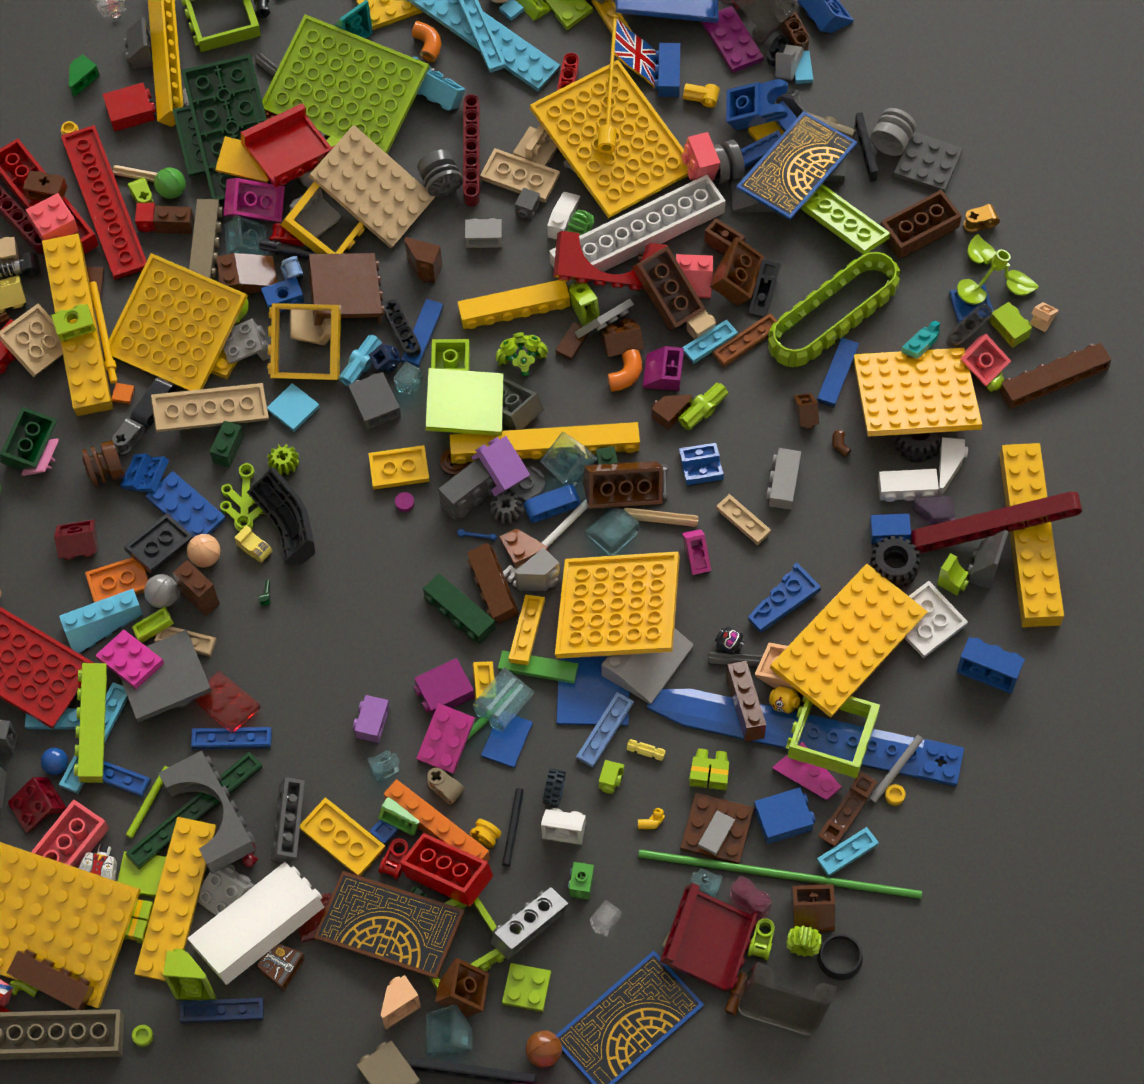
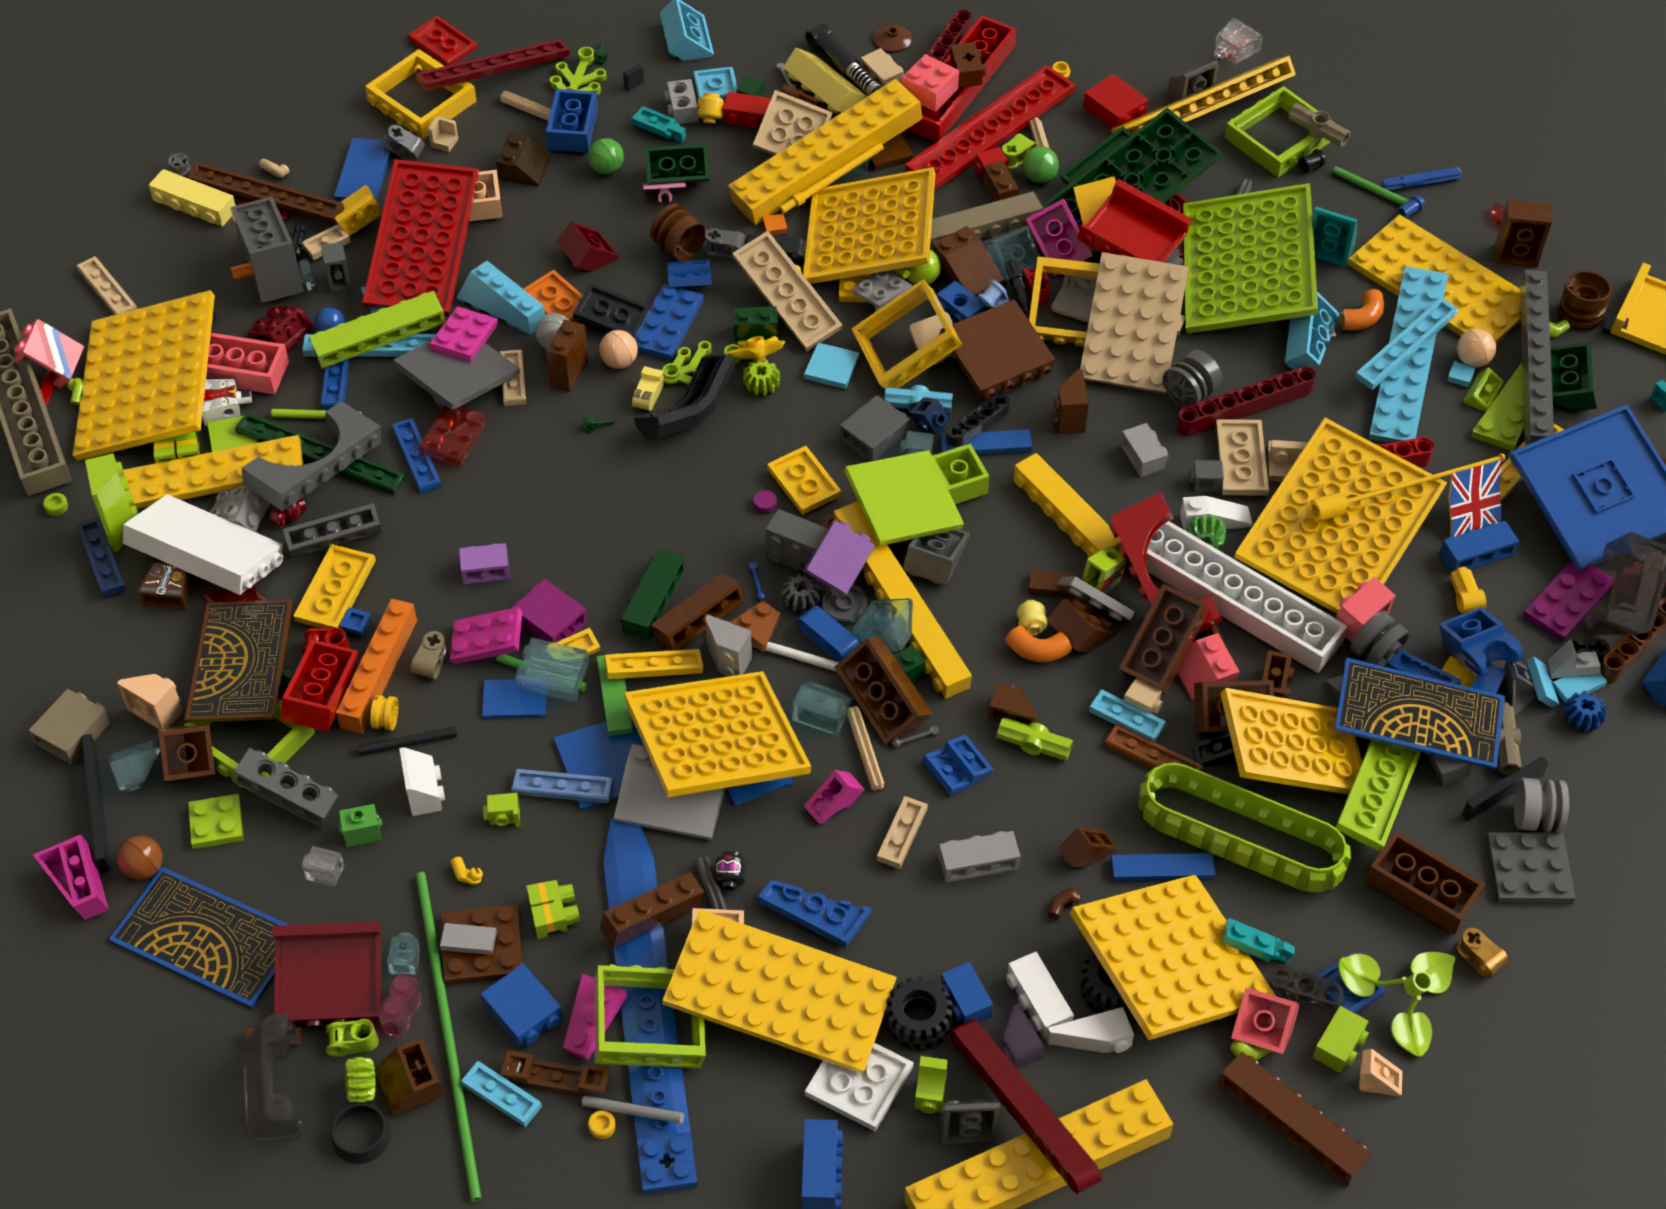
camera: 65 degrees right, 10 degrees down
(51, 980) = (82, 401): reddish brown brick -> none
(81, 74) = (1129, 53): green slope -> none
(82, 326) = (814, 137): lime brick -> none
(152, 625) = (516, 342): lime tile -> none
(254, 451) = (757, 348): none -> yellow animal
(381, 770) = (433, 593): clear light blue brick -> none
(398, 817) = (372, 616): bright green slope -> none
(523, 360) = (1012, 533): lime plant -> none
(554, 787) = (464, 756): black wheel -> none
(600, 365) = (1032, 617): none -> light yellow piece
(645, 749) = (554, 836): light yellow axle -> none
(664, 369) = (1062, 683): magenta slope -> none
(784, 699) = (669, 950): yellow head -> none
(787, 249) = (1290, 742): none -> yellow plate
(799, 87) = (1542, 682): none -> medium azure tile
(827, 73) = (1585, 711): none -> blue gear

